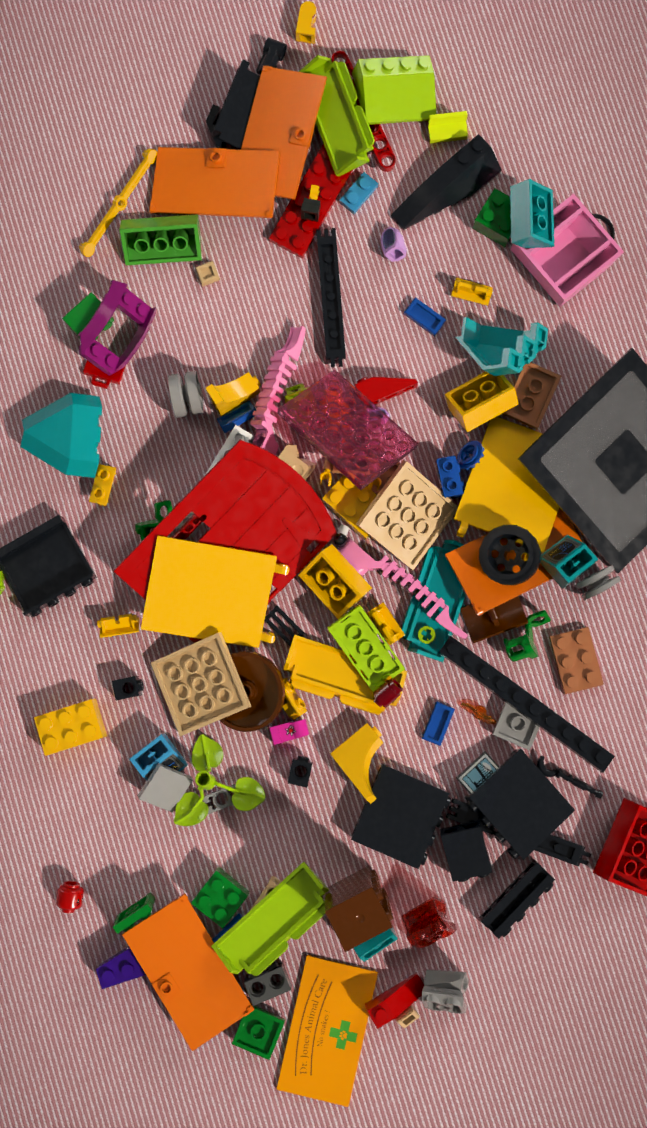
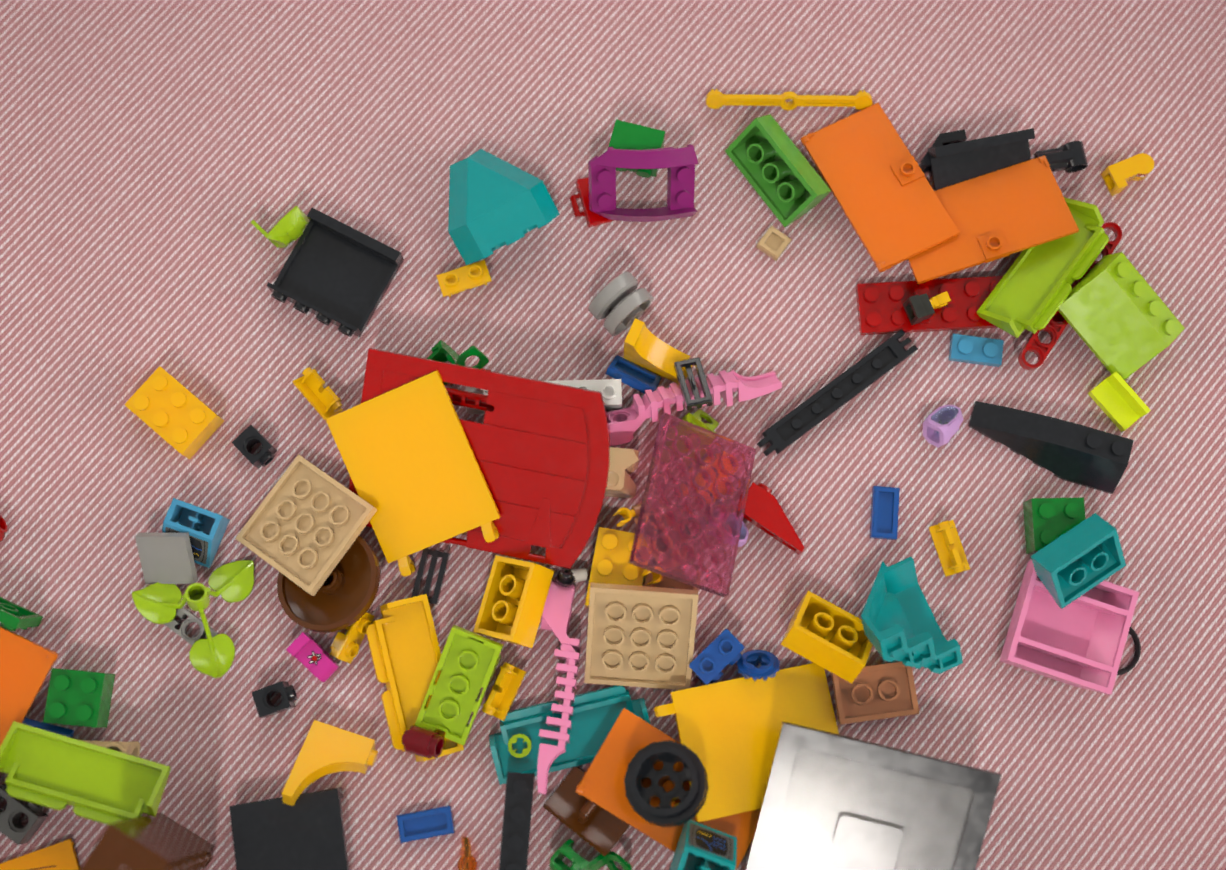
camera: 50 degrees right, 5 degrees down
(283, 384) = (697, 401): none -> tile

